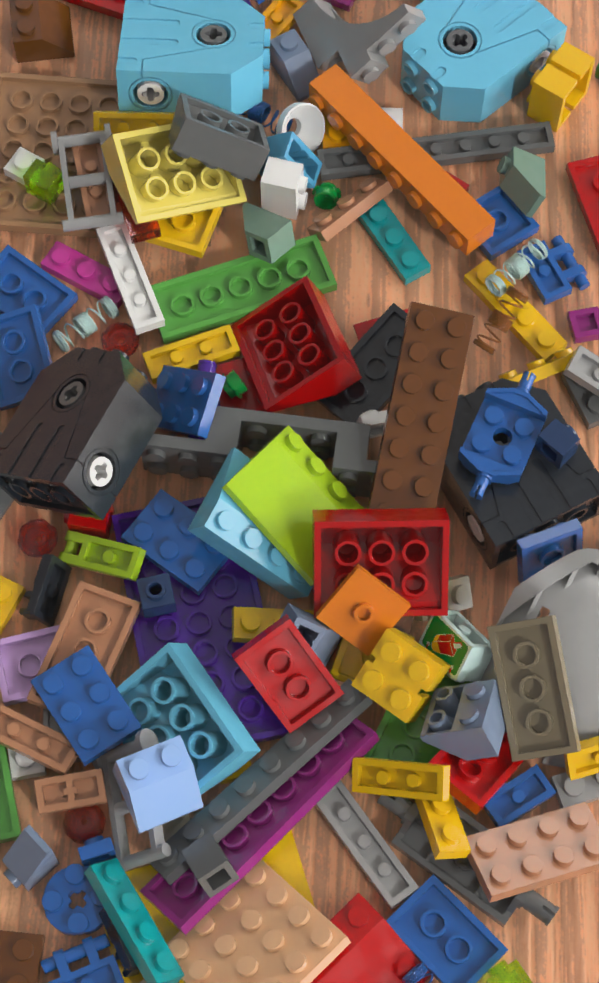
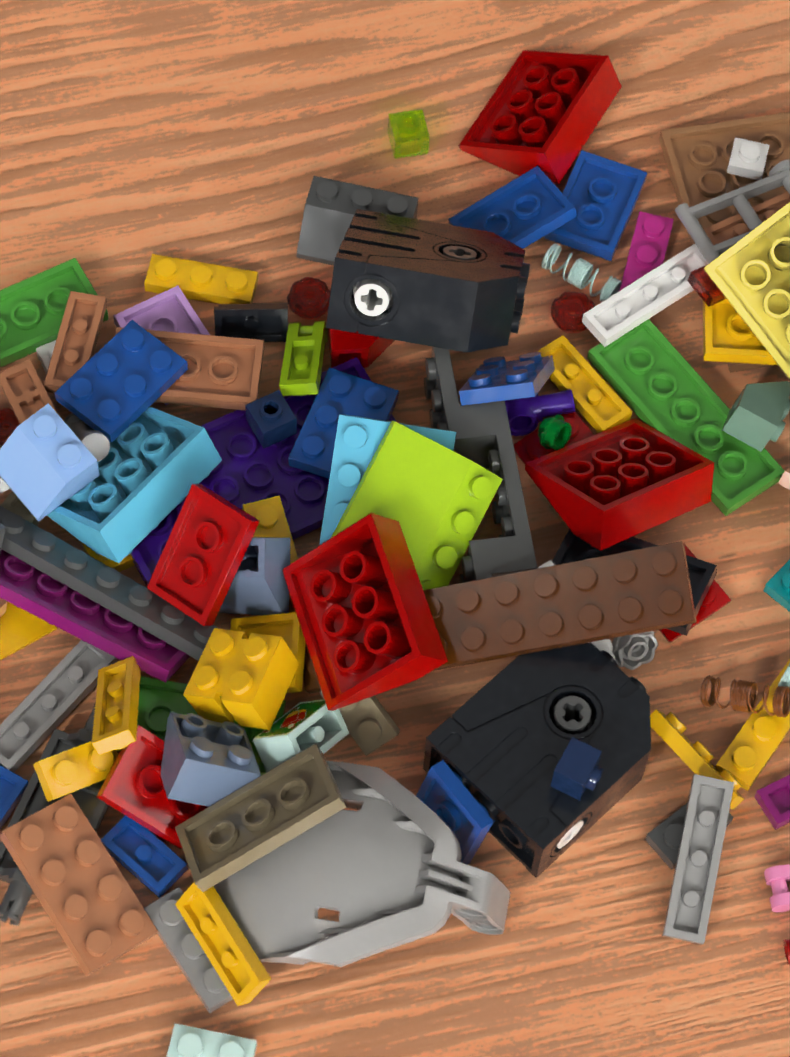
camera: 70 degrees right, 5 degrees down
(44, 181) = (734, 173): clear neon green plate -> none
(362, 609) = (303, 610): orange plate -> none
(505, 412) = (598, 700): blue plate -> none

